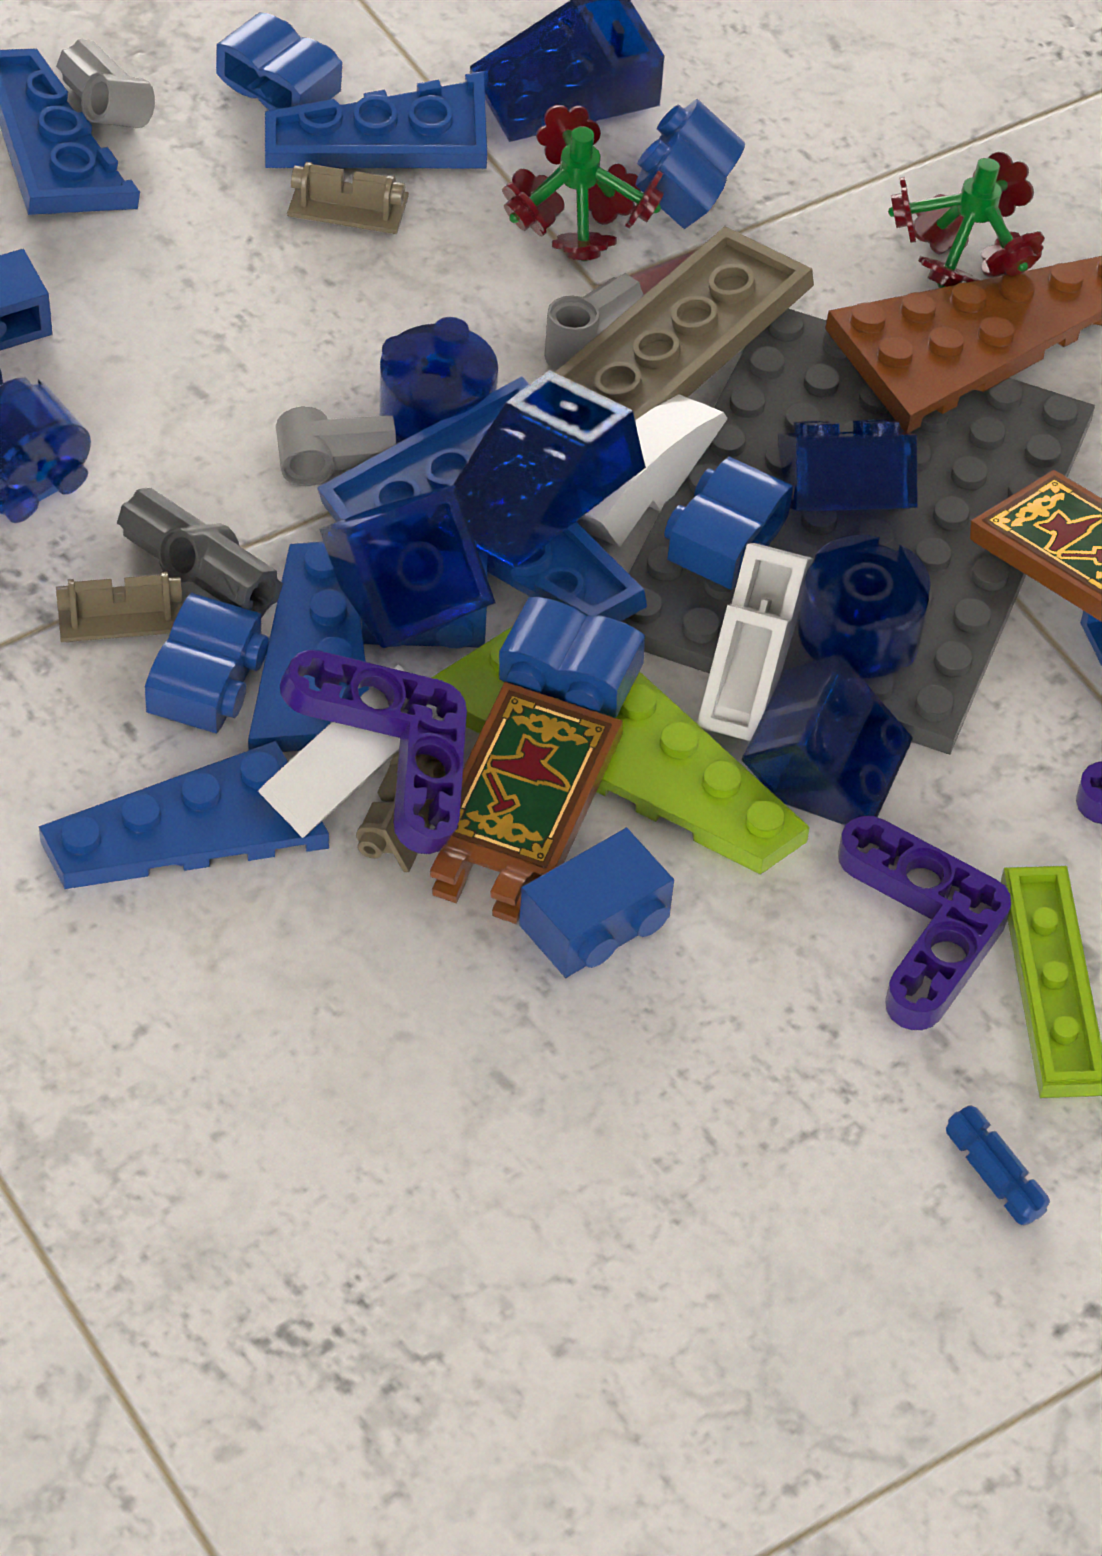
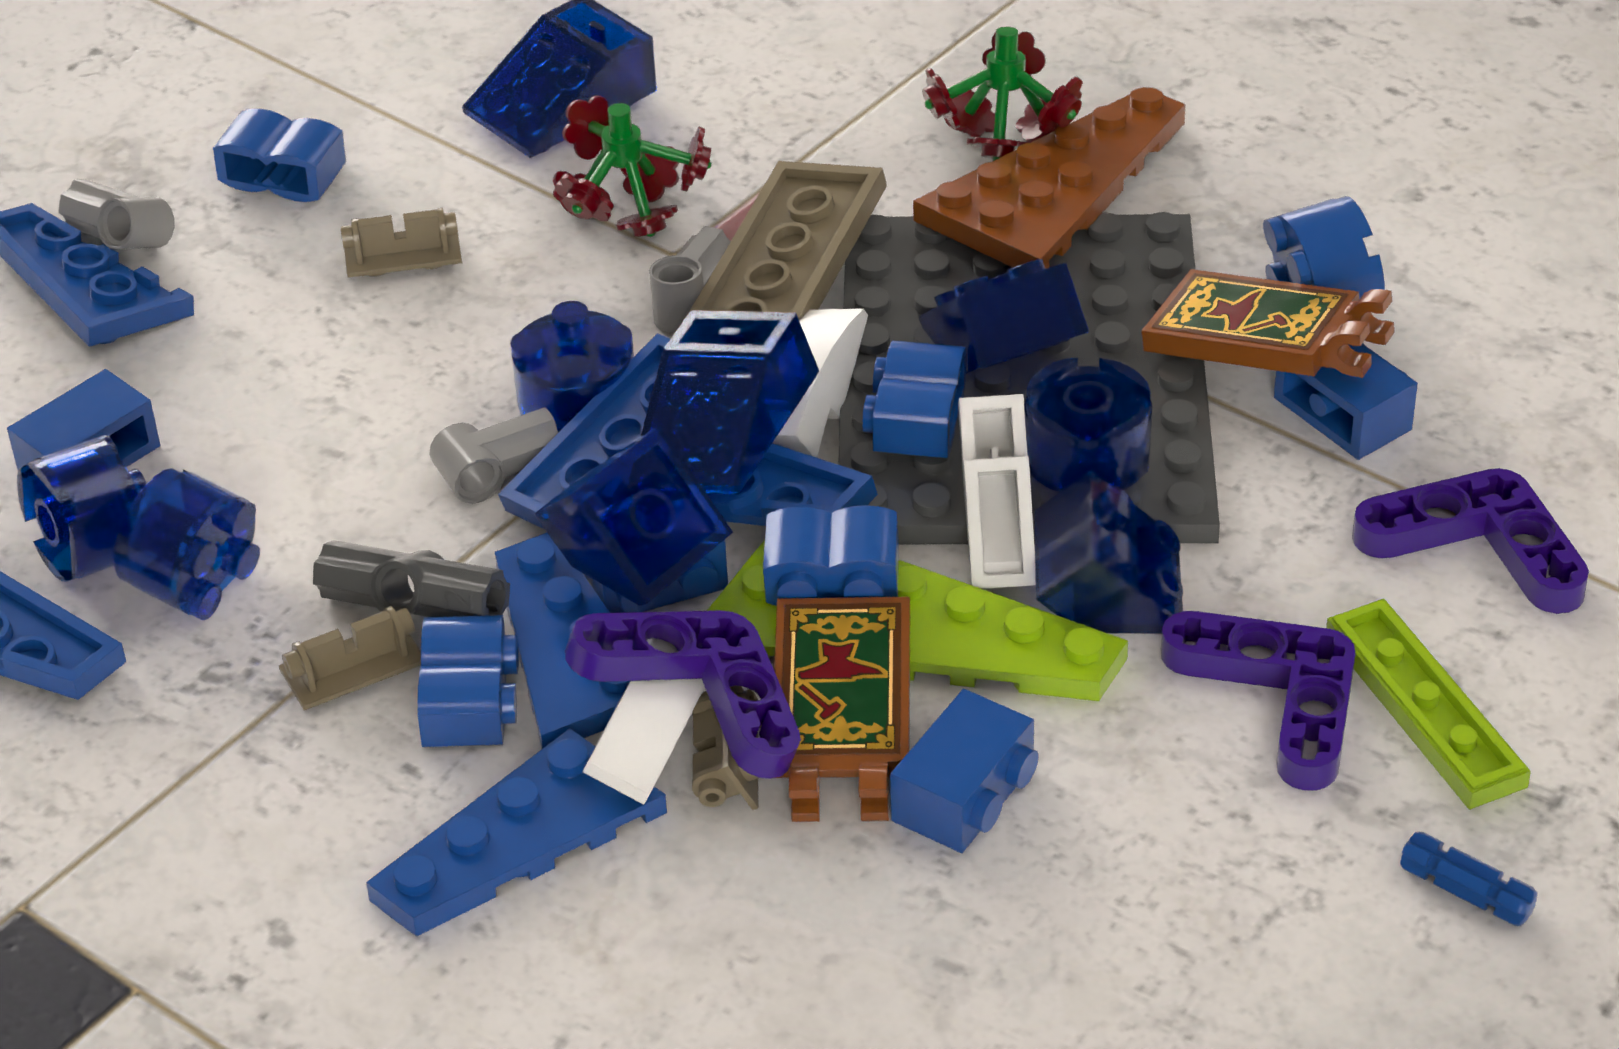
camera: 15 degrees left, 10 degrees down
(407, 130) = (431, 173): blue wing -> none
(695, 159) = (726, 113): blue brick -> none

